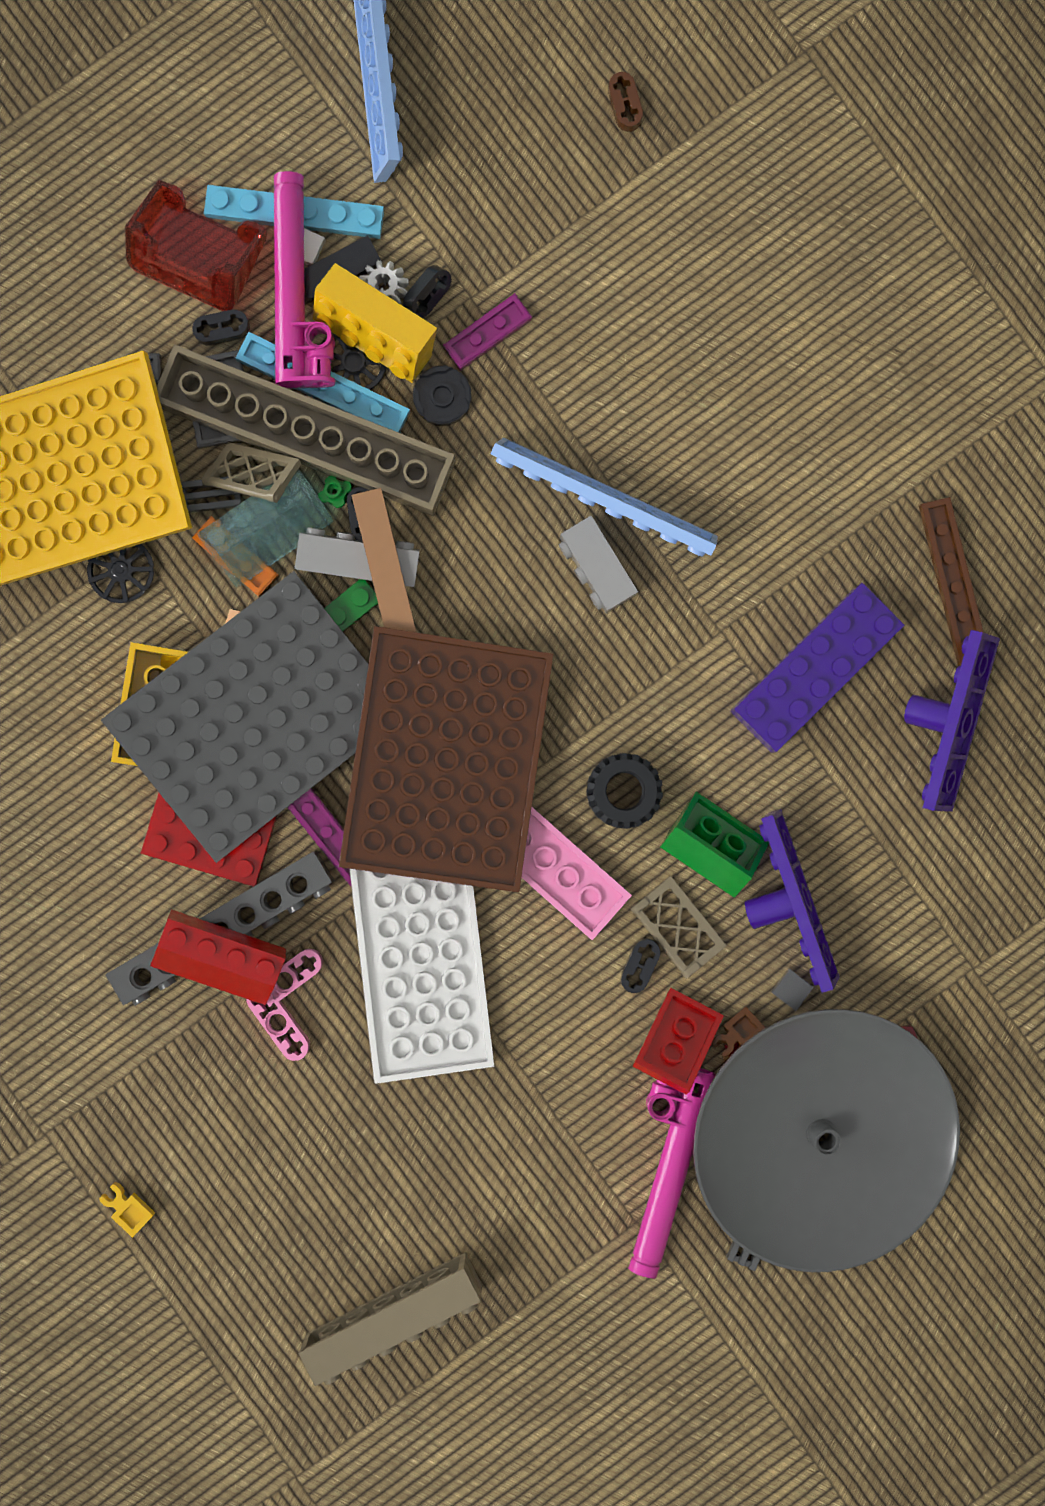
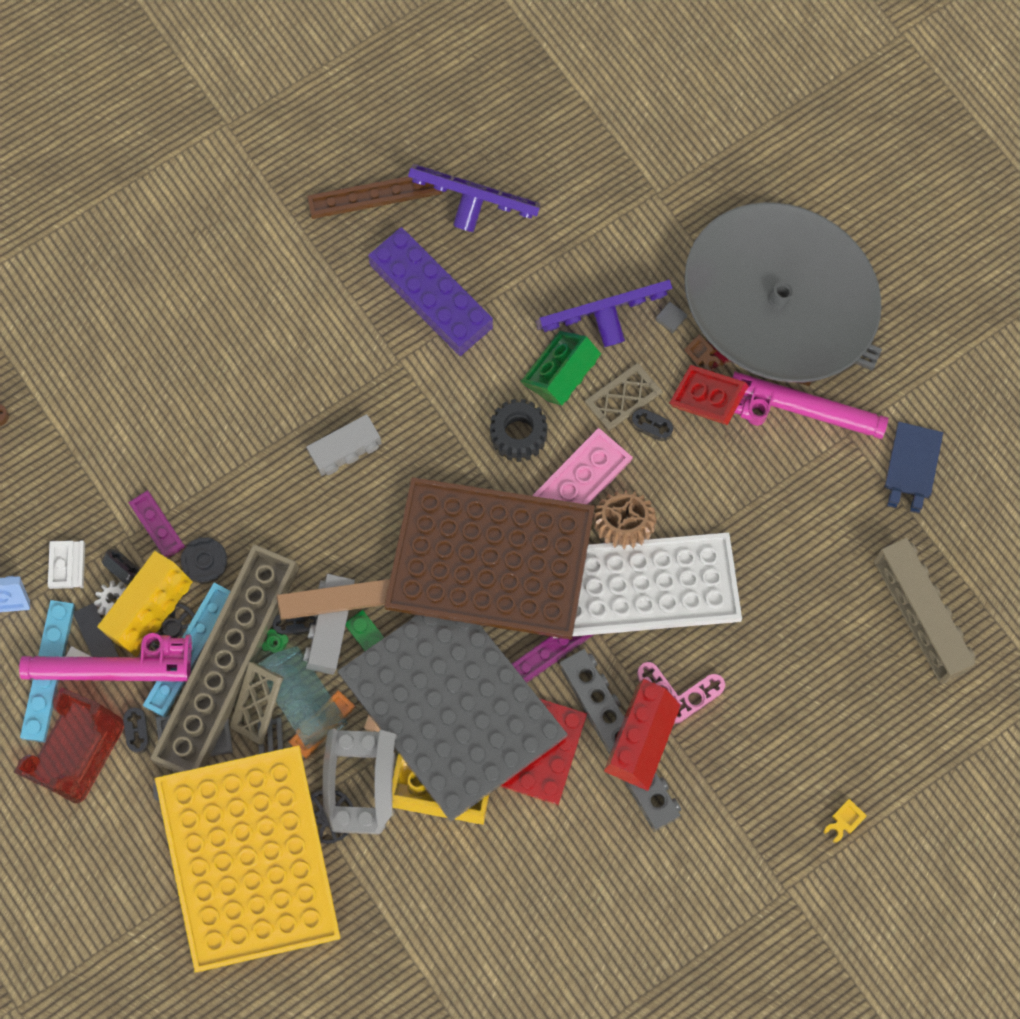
camera: 85 degrees left, 15 degrees down
(194, 609) = (366, 745): none -> light grey wedge
(429, 222) = (66, 564): none -> white plate
(500, 941) = (628, 529): none -> medium nougat gear
(595, 1307) = (913, 464): none -> dark blue tile
(615, 501) = (289, 443): light blue plate -> none

